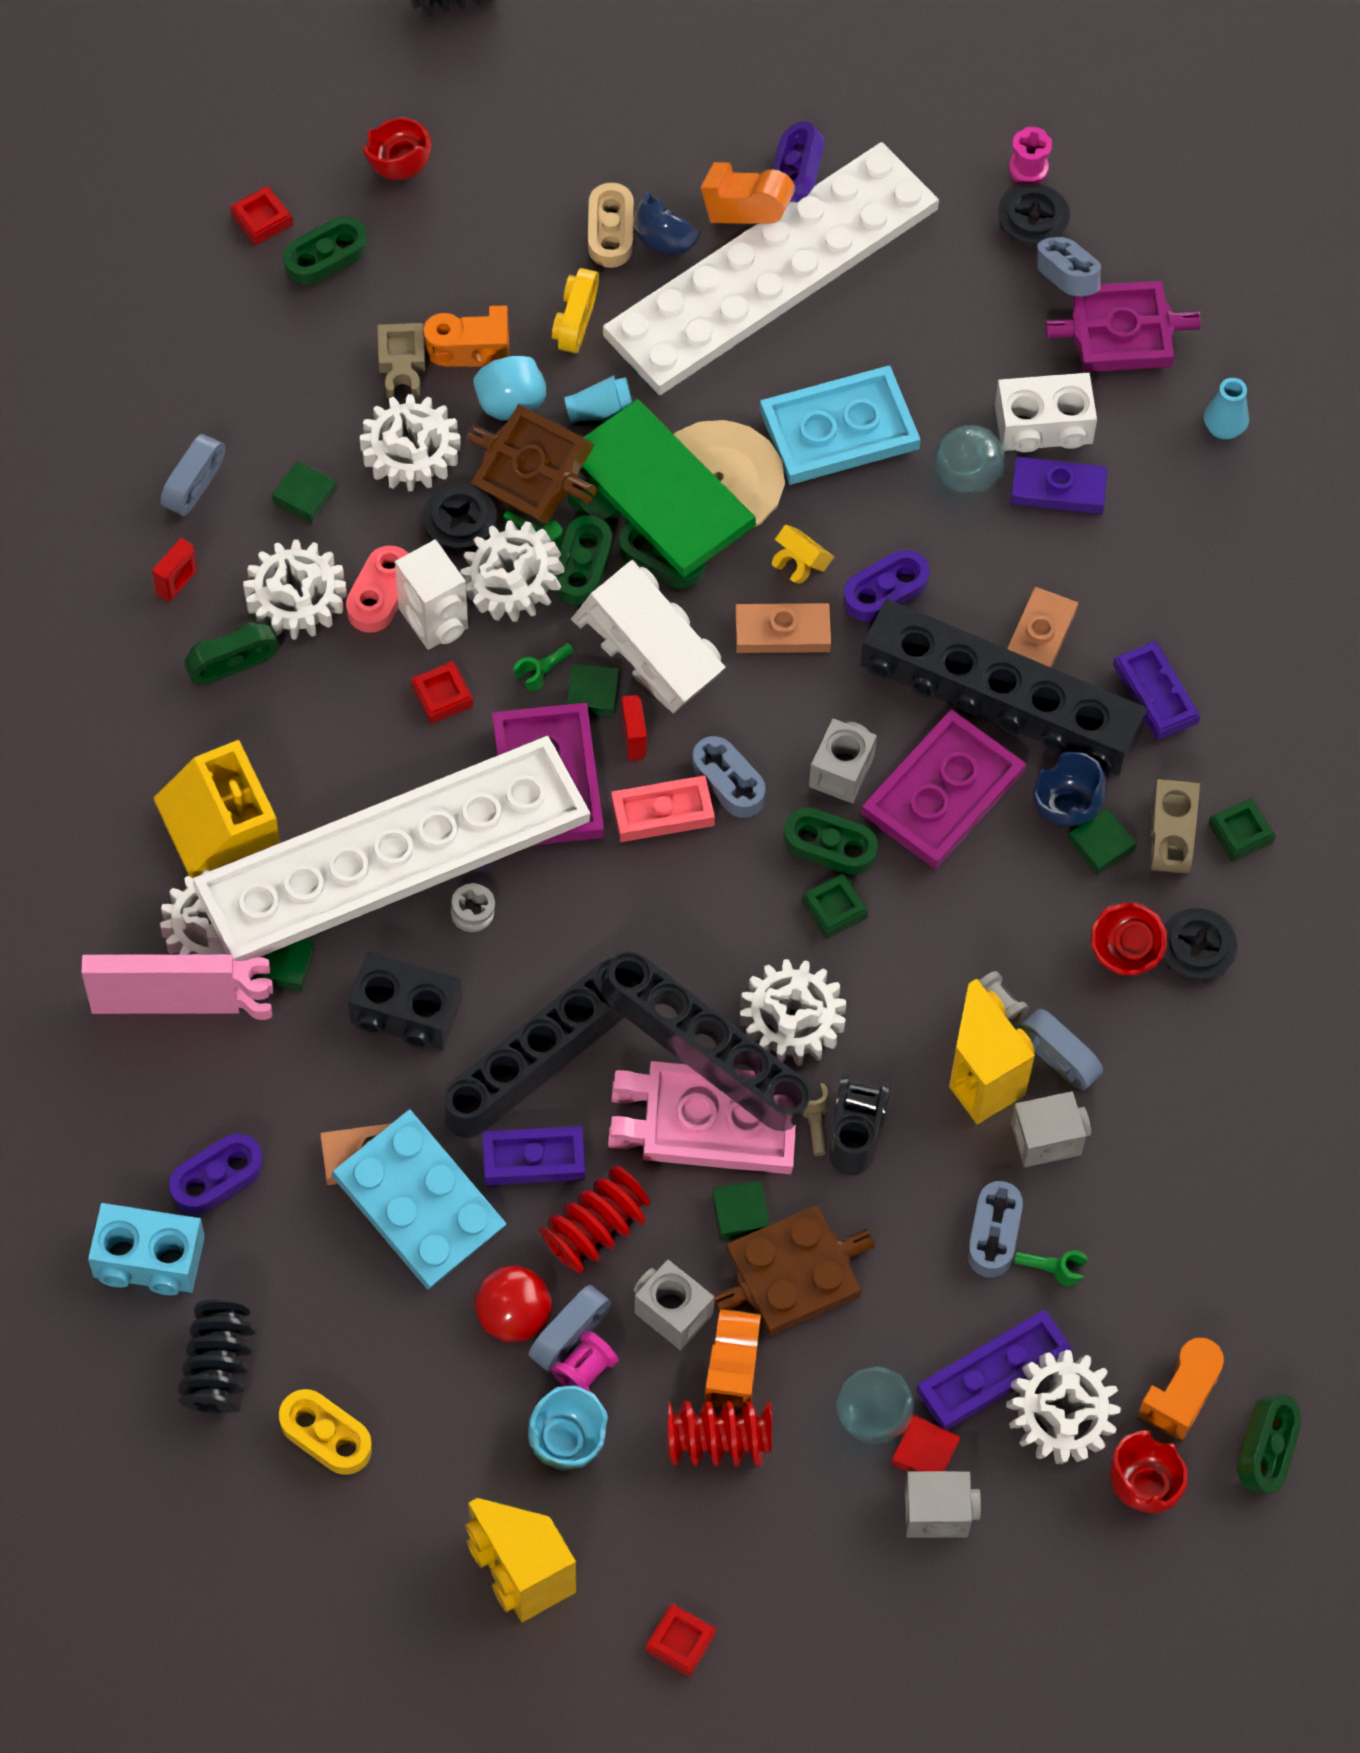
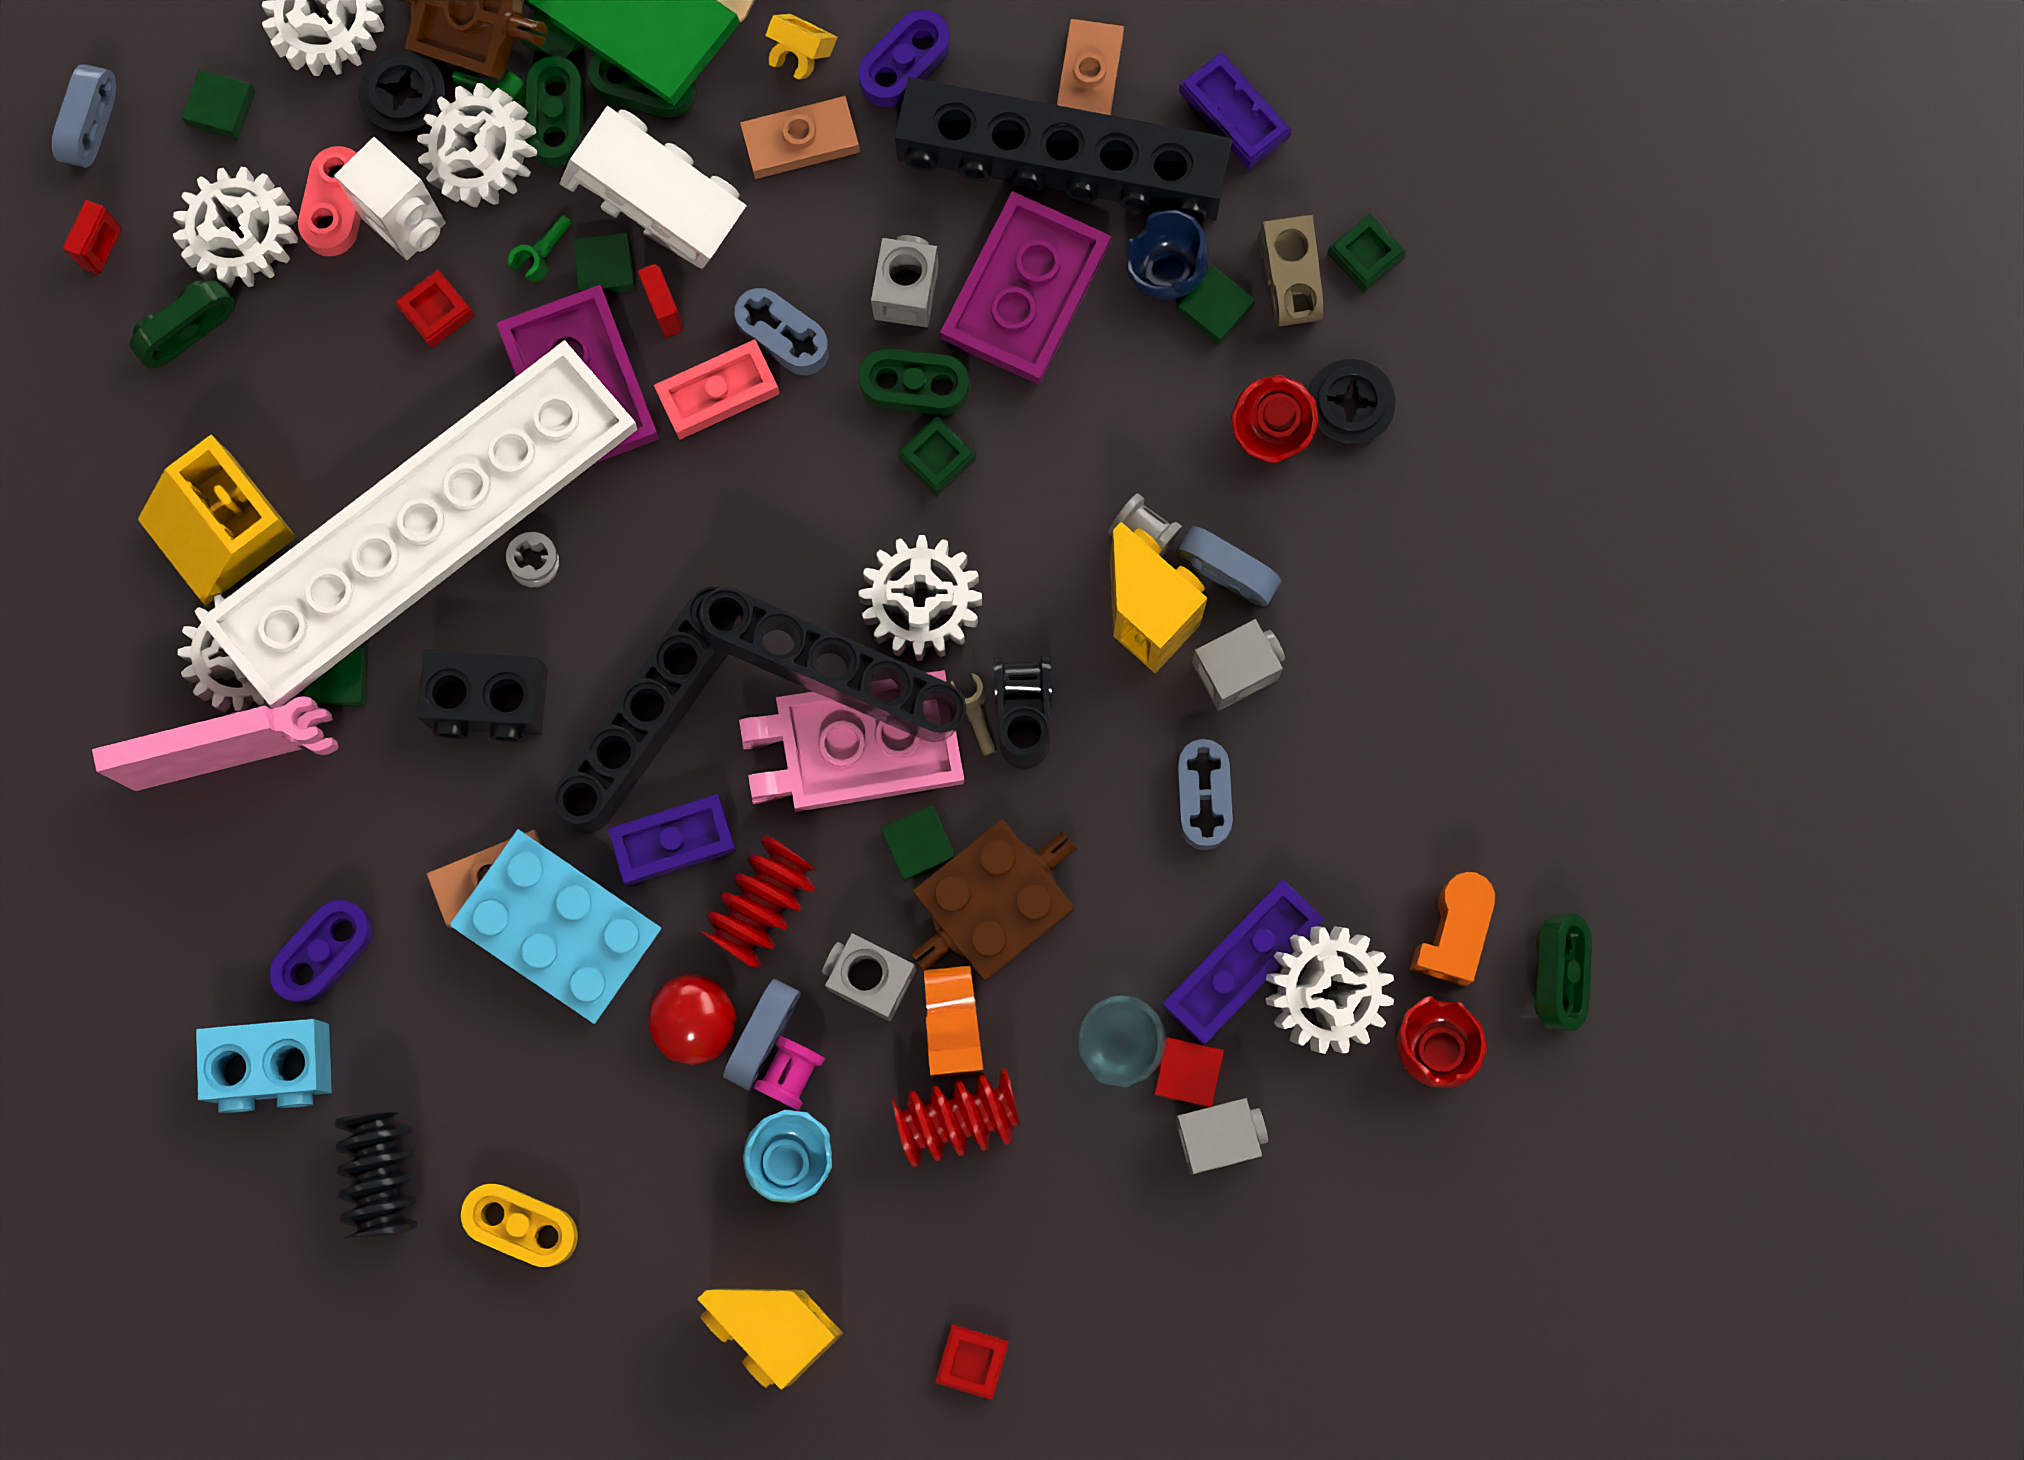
camera: 10 degrees left, 15 degrees up
(1055, 1265) = (1277, 820): green hand -> none

